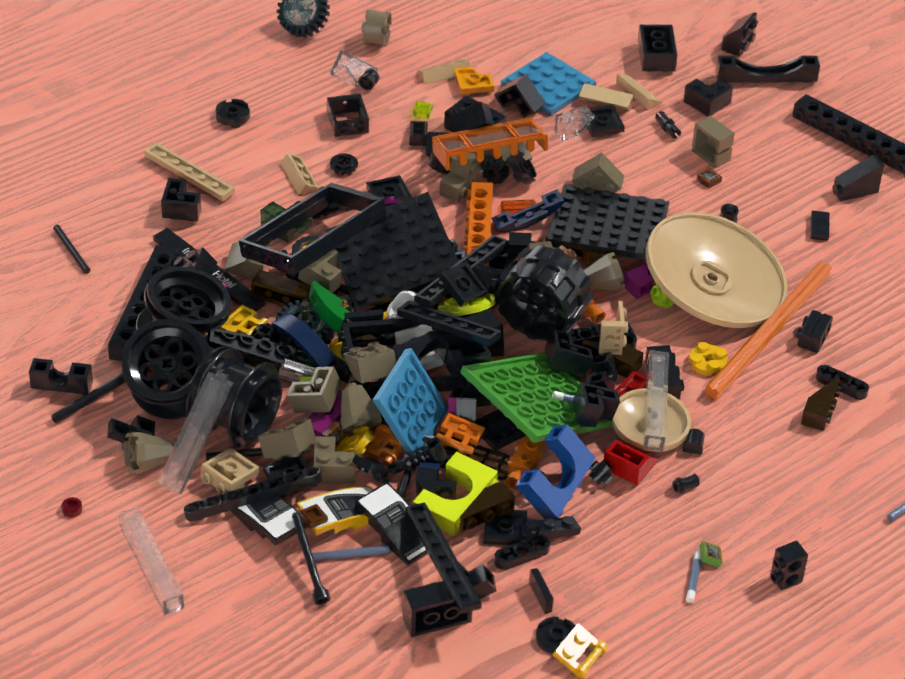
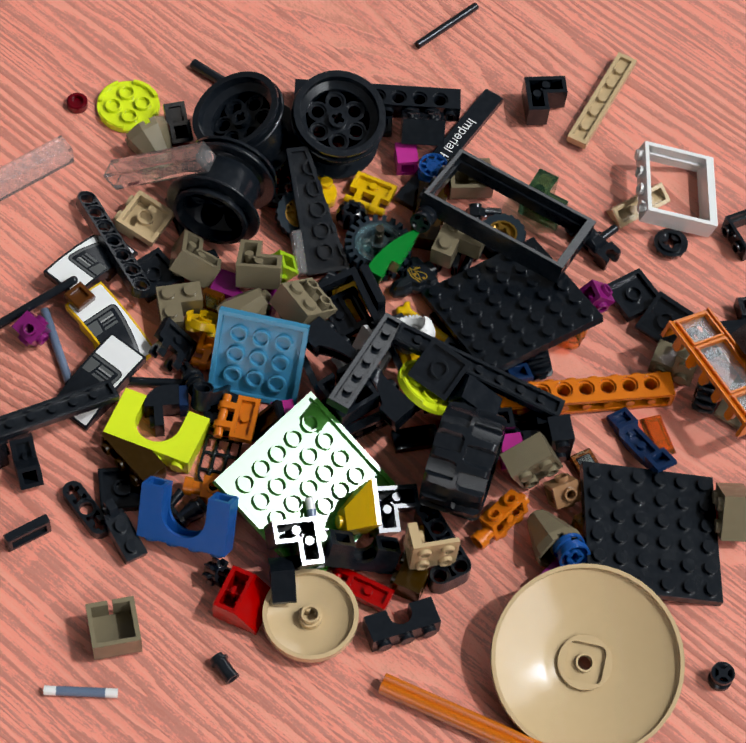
camera: 75 degrees right, 15 degrees up
(46, 377) = (243, 45): black arch -> none
(88, 471) = (127, 104): none -> neon yellow tile
(232, 113) = (715, 130): black plate -> none
(235, 279) = (430, 167): none -> blue wheel
(299, 132) = (682, 159): none -> white window
(306, 339) = (339, 243): dark blue slope -> none
(307, 272) = (417, 219): none -> black wheel
(331, 561) = (25, 327): none -> magenta brick
(420, 176) = (657, 316): none -> black plate
(522, 168) = (711, 434): black plate -> none
(568, 364) = (361, 510): none -> yellow slope
(621, 422) = (282, 580): none -> black slope
(625, 258) = (569, 550): none -> blue wheel
(645, 540) = (114, 633): none -> dark tan piece
(656, 400) = (330, 610): clear brick -> none
(694, 442) = (294, 672): black brick -> none
(703, 351) = (449, 663): yellow plate -> none
(710, 554) = (114, 704): tile -> none

